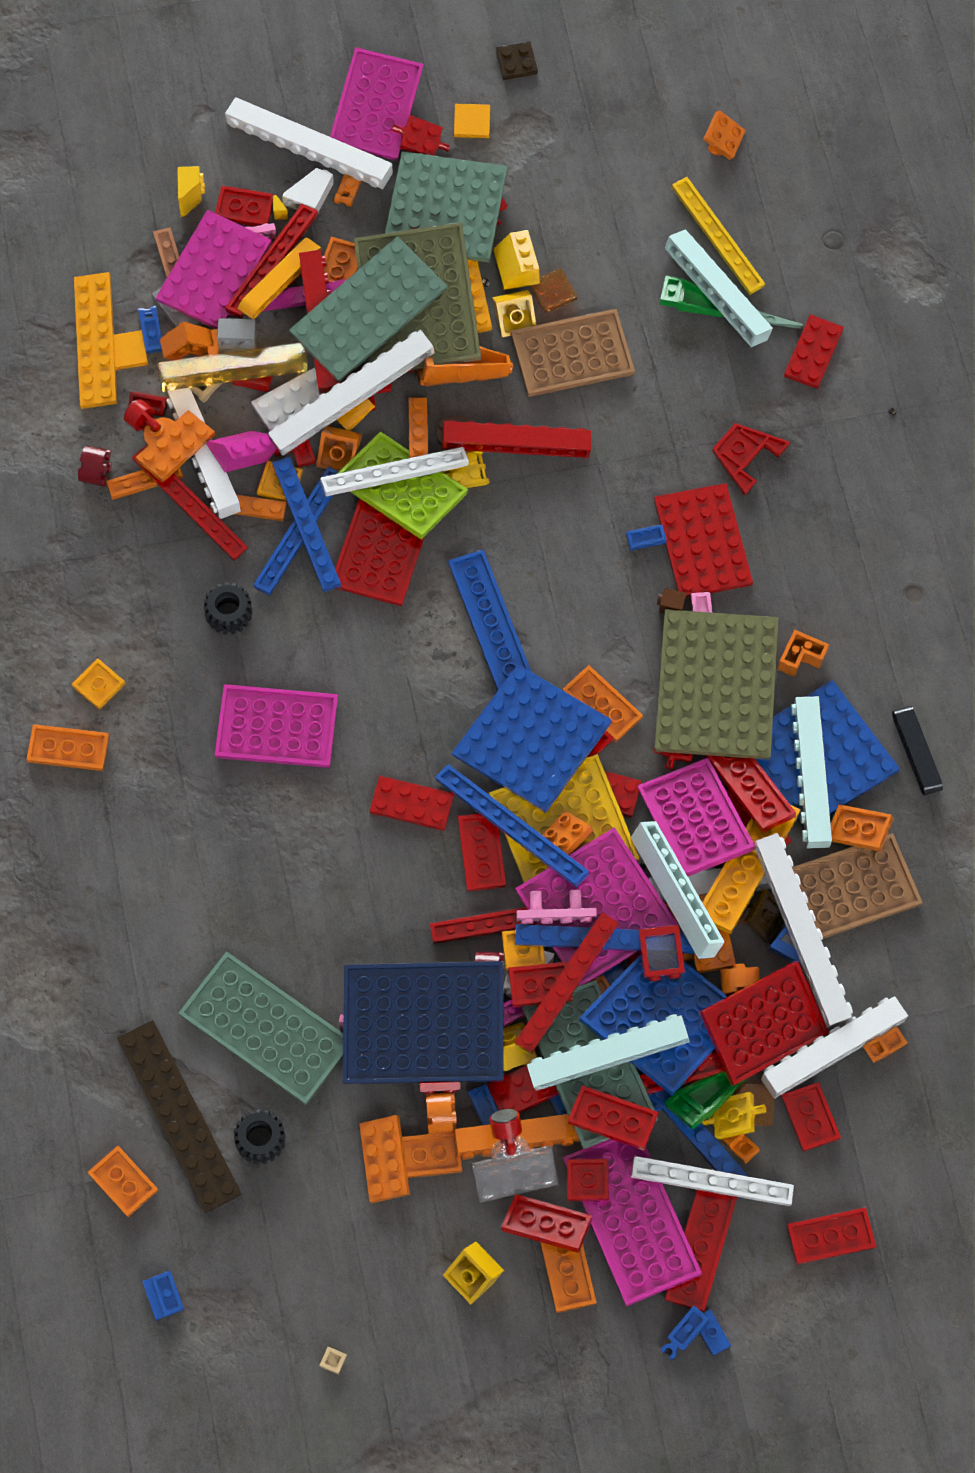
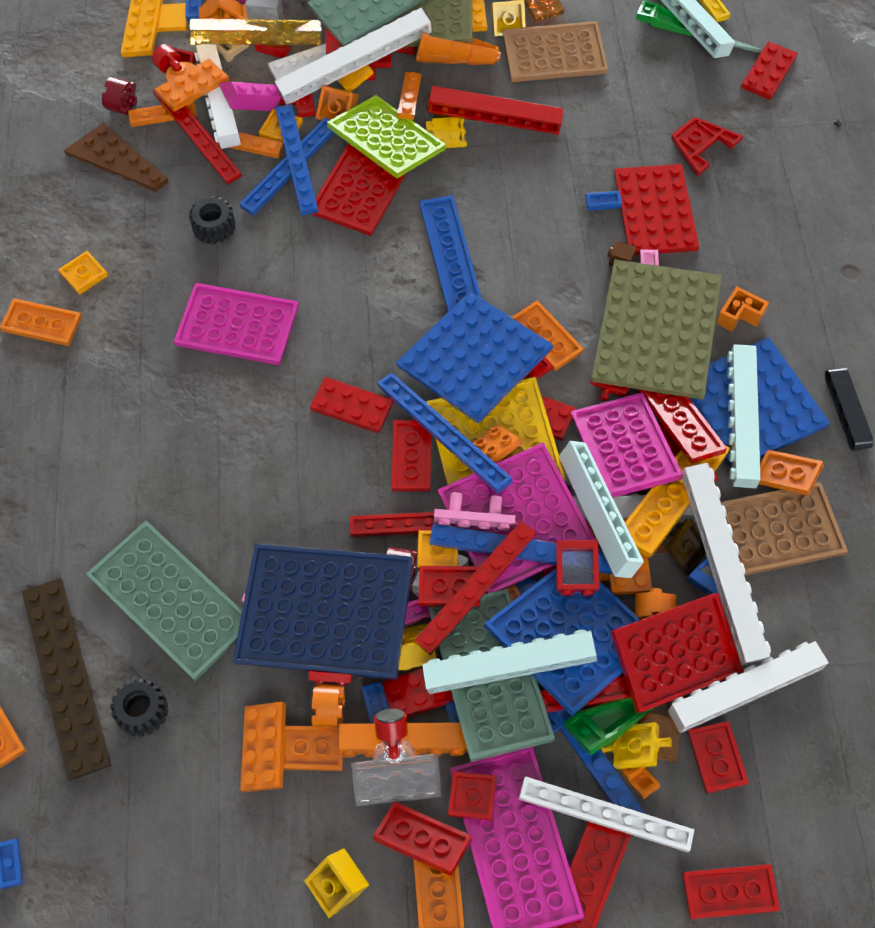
camera: 10 degrees right, 5 degrees down
(101, 538) = (112, 154): none -> reddish brown wing
(394, 471) = (378, 122): white plate -> none
(613, 1117) = (506, 732): red plate -> none
(885, 1045) = (801, 690): orange slope -> none

